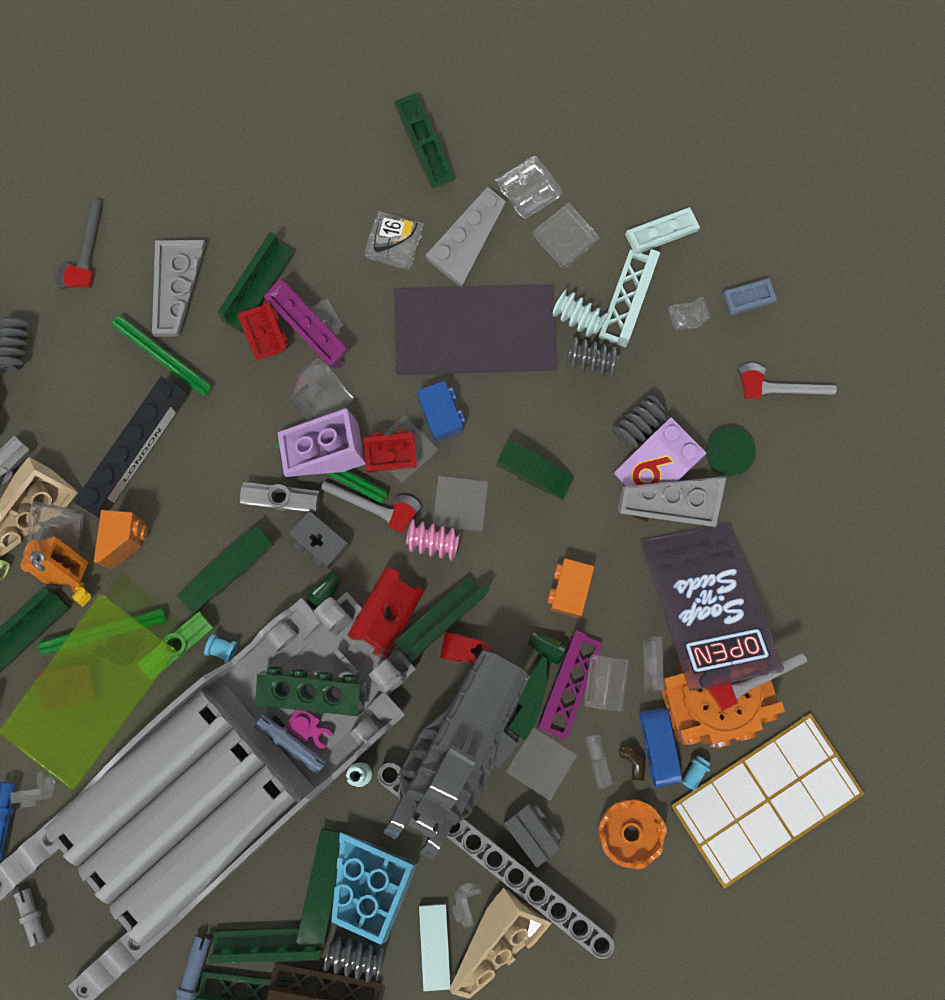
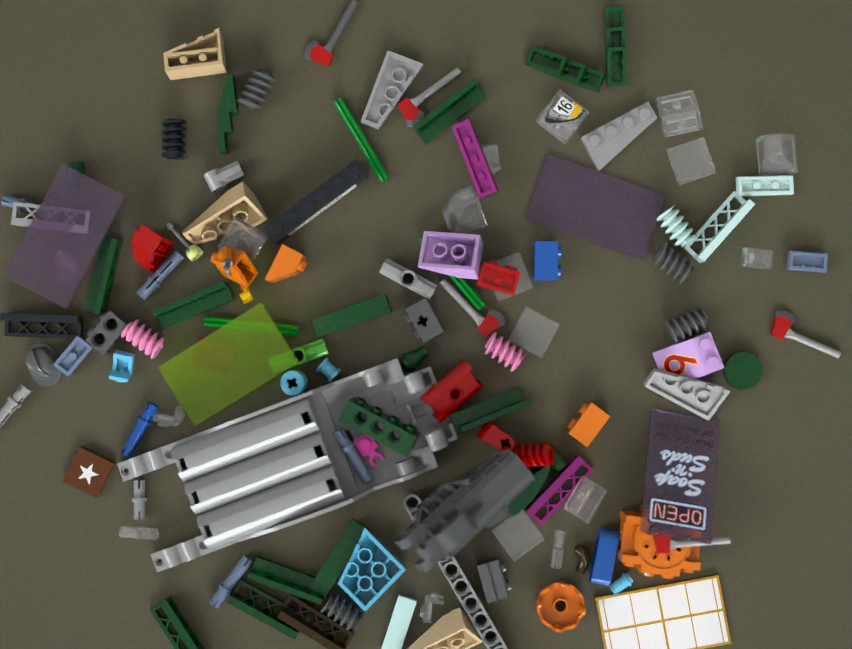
camera: 25 degrees right, 10 degrees up
(44, 963) = (139, 533): none -> clear axle
(170, 676) = (286, 383): none -> medium azure piece
(207, 296) = (409, 106): none -> piece
(263, 332) = (441, 151): red bracket -> none
(365, 771) = (388, 492): light aqua pin -> none
(371, 187) = (565, 69): none -> dark green slope
(524, 650) = (534, 455): none -> red piece
(534, 470) = (596, 329): dark green slope -> none
(653, 664) = (623, 500): clear tile -> none
(660, 190) = (777, 154): none -> clear slope

